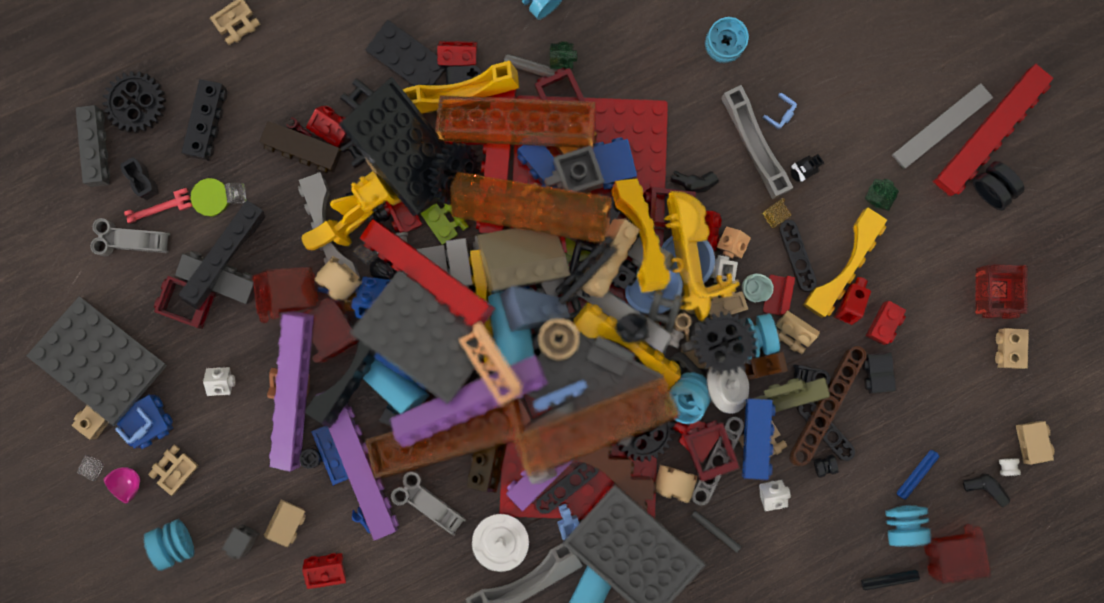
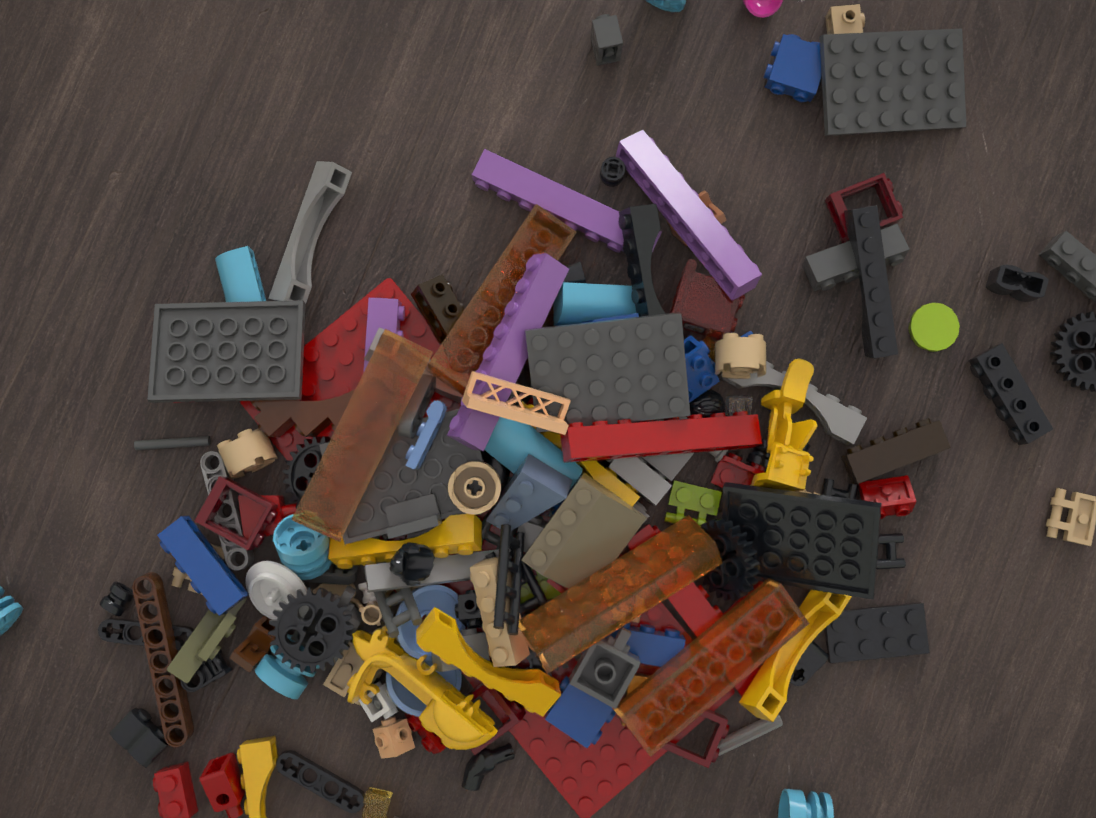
camera: 135 degrees right, 0 degrees up
(127, 239) = (974, 217): light grey piece -> none
(141, 432) = (790, 53): light blue piece -> none
(177, 201) = (960, 296): coral hinge -> none
(177, 473) = (721, 49): tan plate -> none
(218, 381) = (763, 164): white brick -> none
(235, 193) = (914, 352): clear plate -> none
(284, 291) = (780, 299): clear red container -> none
(284, 523) = (581, 92): tan brick -> none
(297, 127) = (913, 468): dark red hand -> none
(324, 570) = (506, 83): red bracket -> none
(330, 455) = (597, 190): blue tile -> none
(360, 518) = (519, 158): blue hand -> none
(428, 504) = (465, 227): light grey piece -> none
(456, 53) = (831, 681): red bracket -> none
(500, 542) = (365, 252): white piece -> none
(562, 55) = (727, 774): clear green brick -> none
(568, 523) = (317, 325): light blue plate -> none
(570, 489) = (348, 359): black beam -> none
(757, 288) = (331, 713): light aqua hair -> none
(774, 495) = (142, 526): white brick -> none
(781, 297) = (305, 725): red panel -> none
(797, 329) = (255, 708): tan plate -> none
(918, 474) = (21, 662): blue axle -> none

